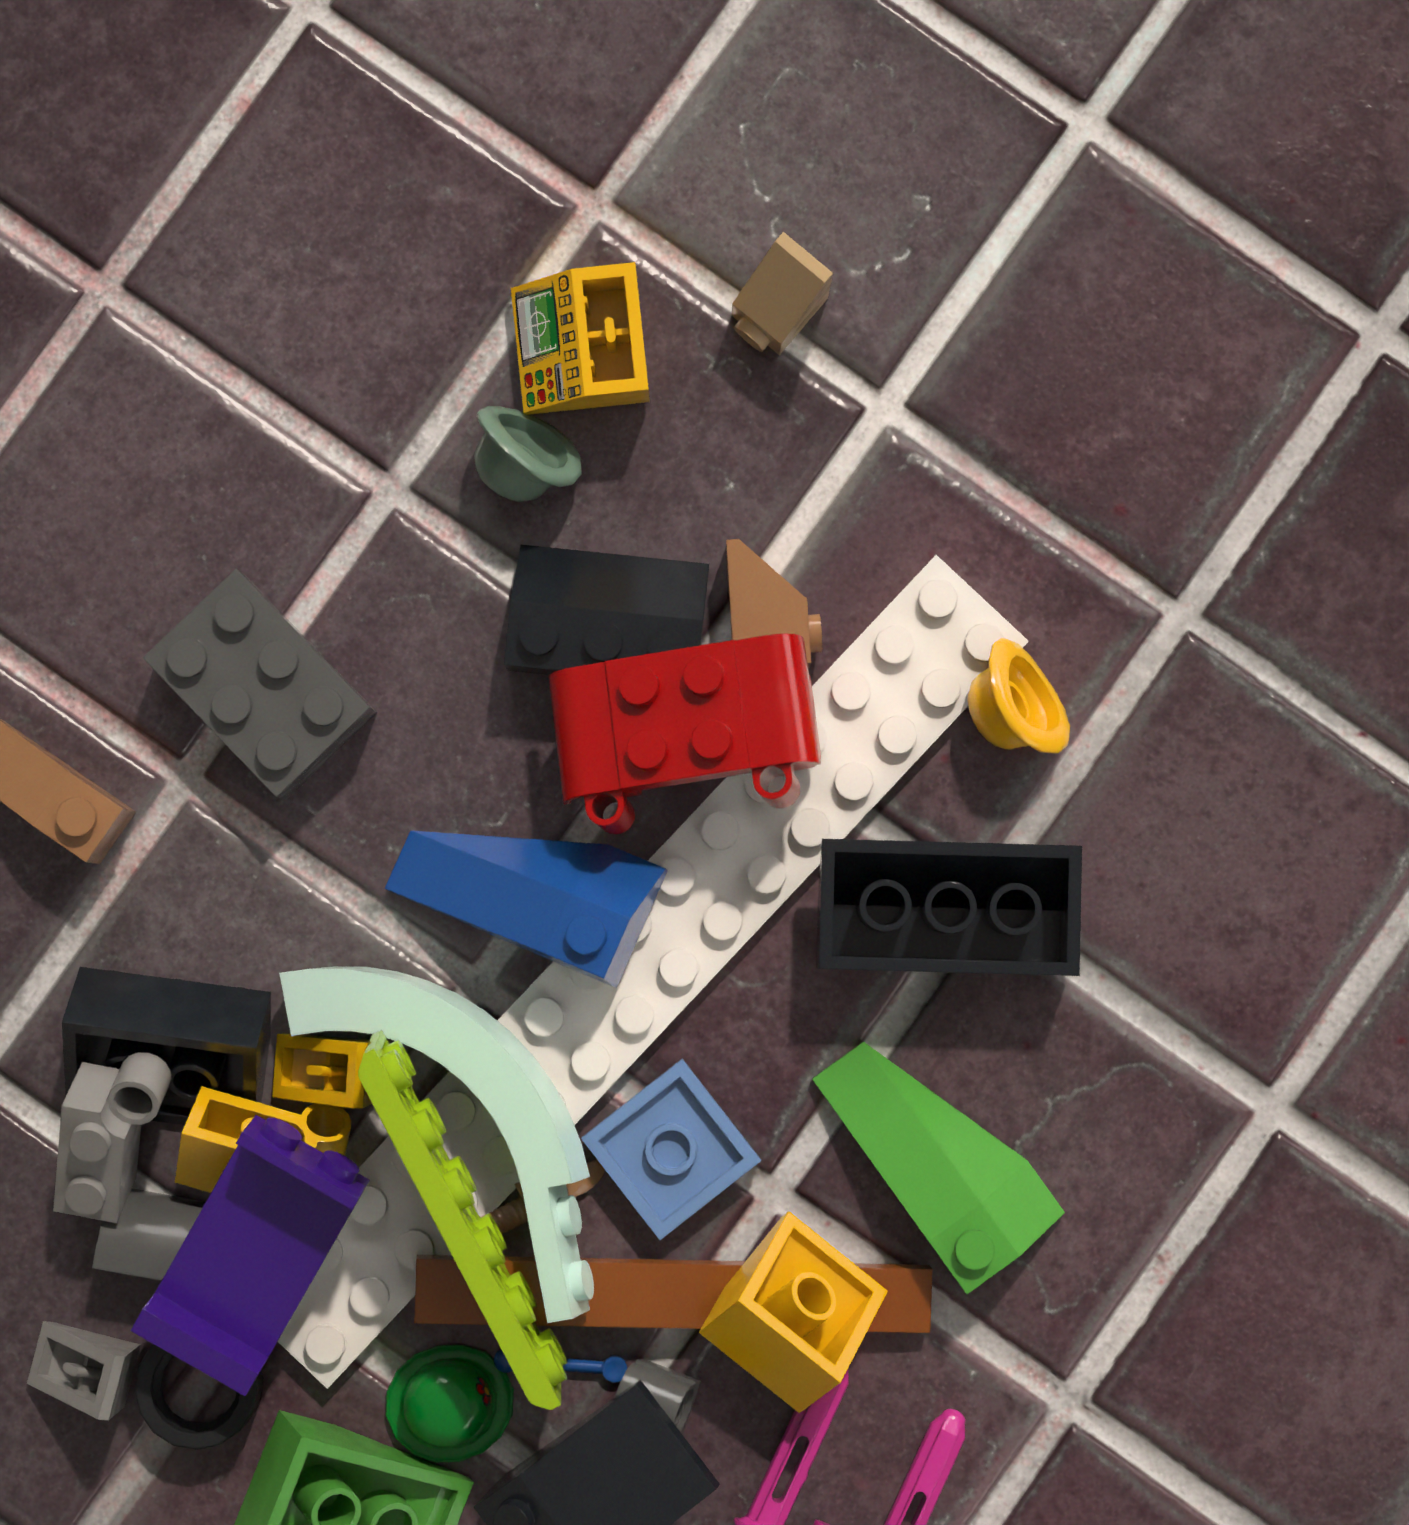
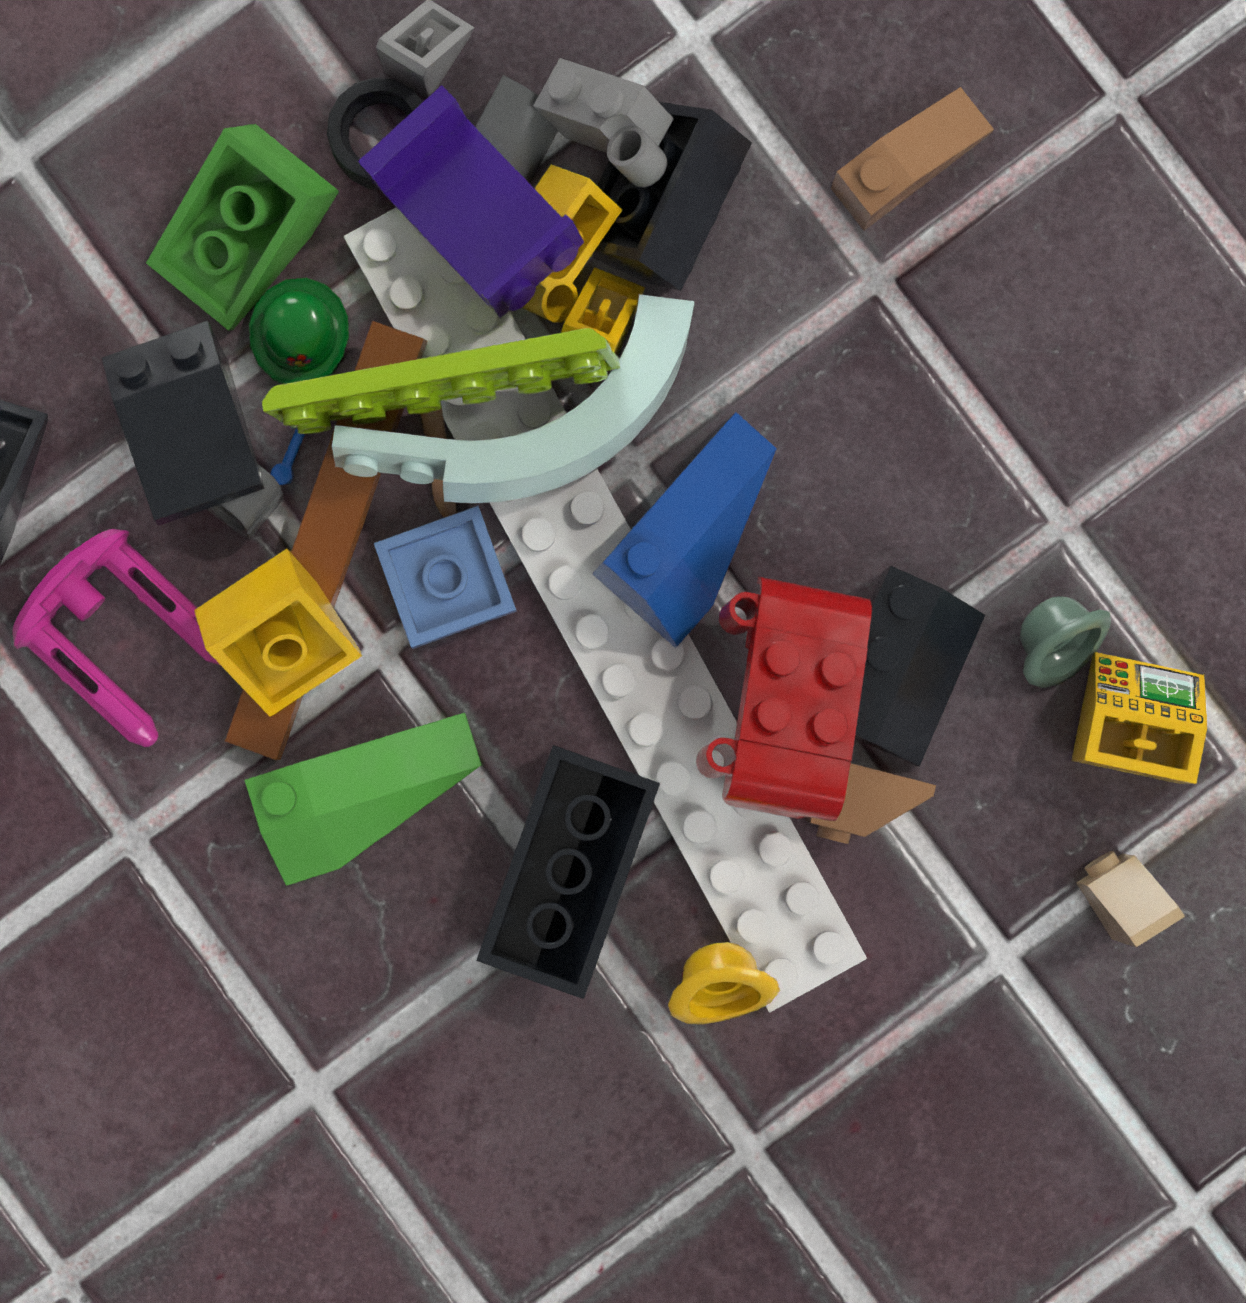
camera: 110 degrees right, 0 degrees up
(259, 685) = (937, 361): dark grey brick -> none

